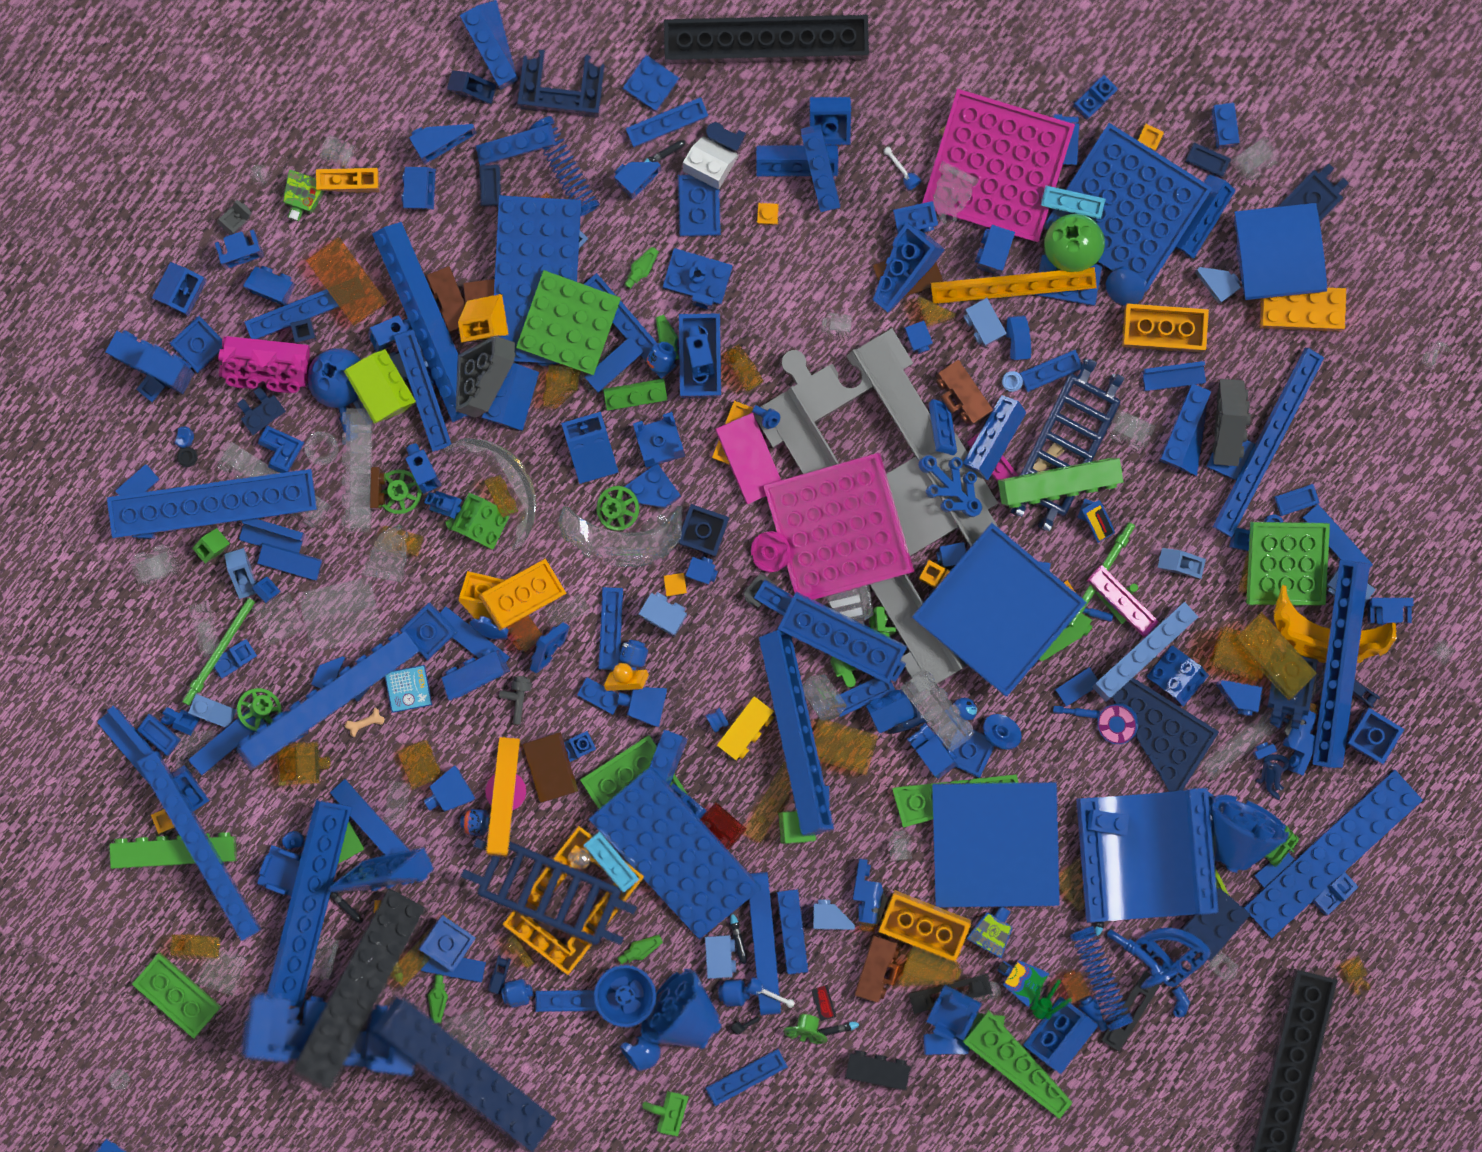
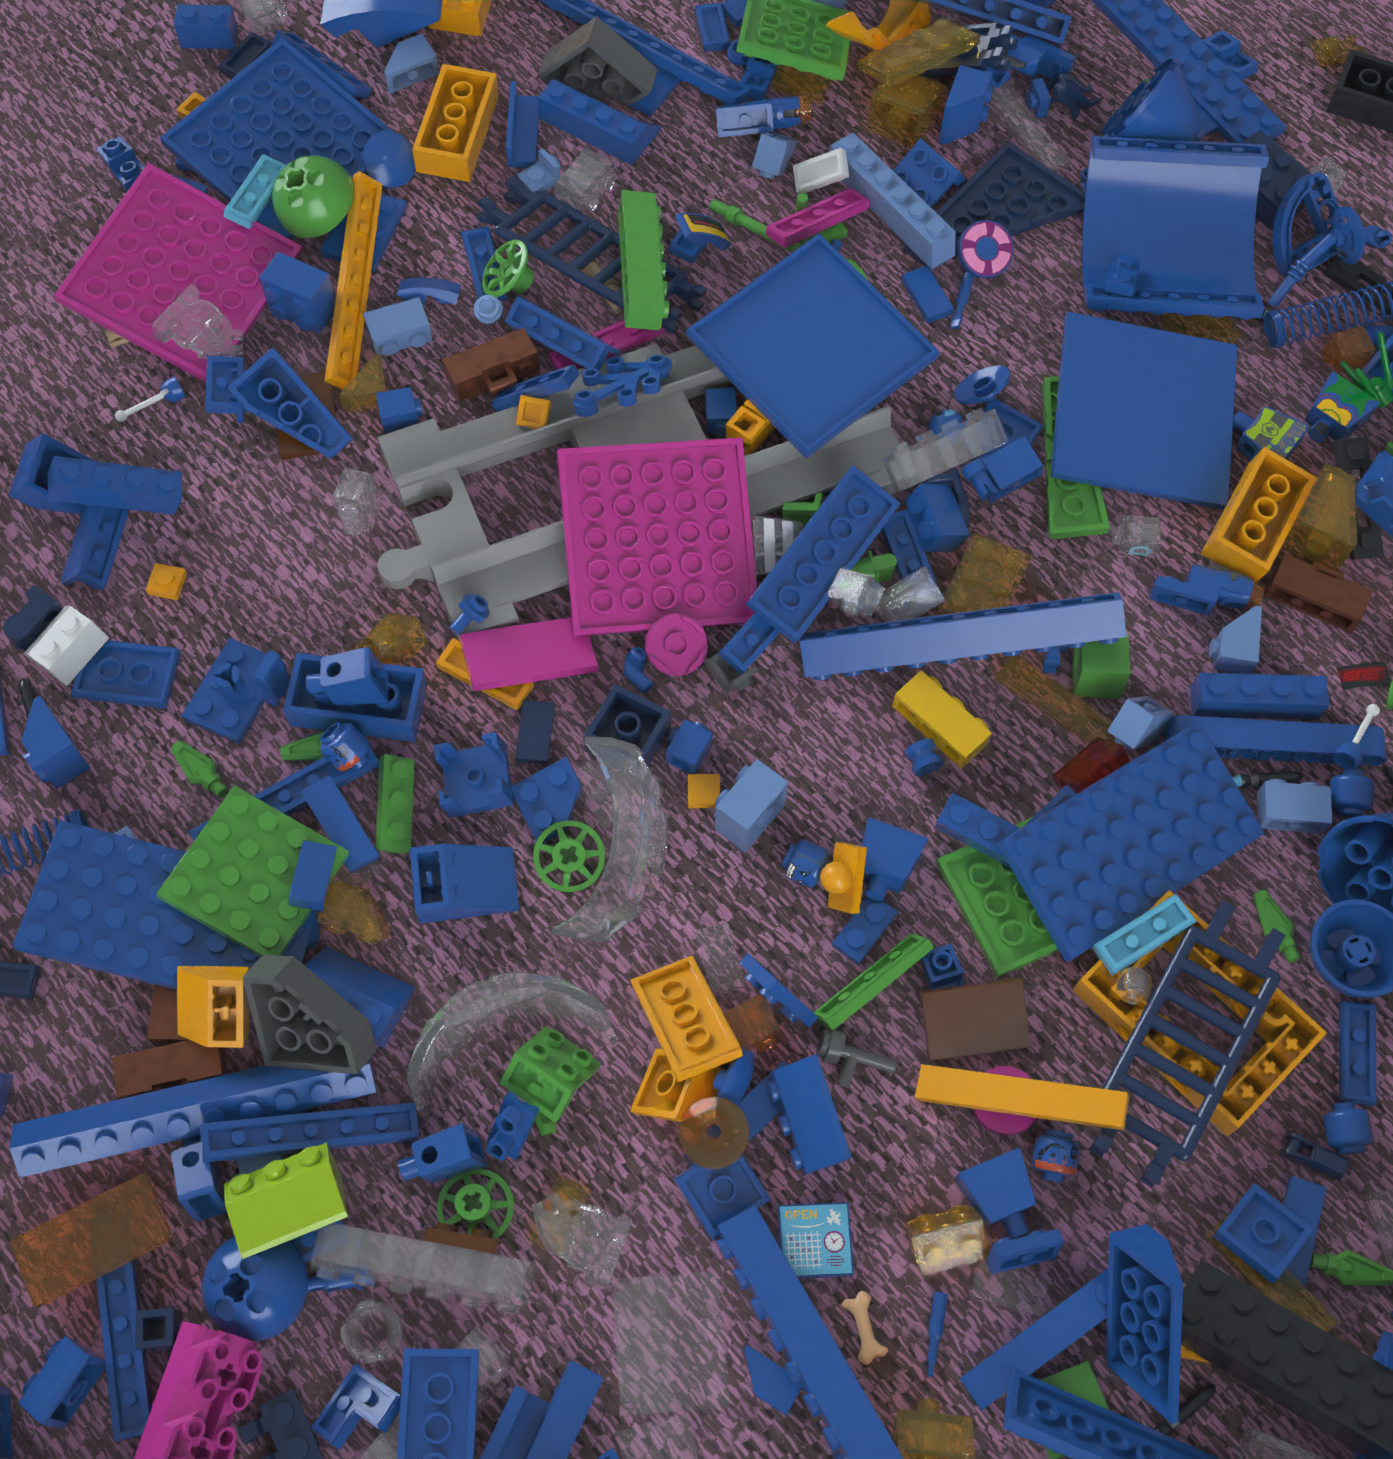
camera: 80 degrees left, 20 degrees down
(370, 763) = (936, 1328): none -> blue piece
(421, 815) = (1024, 1251): none -> blue plate
(447, 618) = (719, 1150): none -> clear orange dish
(501, 496) = (528, 1027): clear yellow plate -> none
(516, 948) = (1269, 1119): clear yellow plate -> none
(565, 704) = (872, 981): none -> bright green tile
(571, 358) = (312, 875): none -> blue slope
(610, 628) = (759, 896): blue tile -> none
(698, 472) = (535, 732): none -> dark blue tile
(751, 527) = (634, 669): none -> blue arm
(756, 853) = (1139, 722): none -> medium blue brick
(815, 661) = (855, 592): none -> clear brick
(922, 429) = (533, 412): none -> light orange tile
(1040, 392) = (511, 274): none -> bright green wheel
(1134, 396) = (542, 174): none -> medium blue bracket
(1164, 598) = (821, 171): none -> white tile
(1211, 548) = (762, 115): none -> blue plate

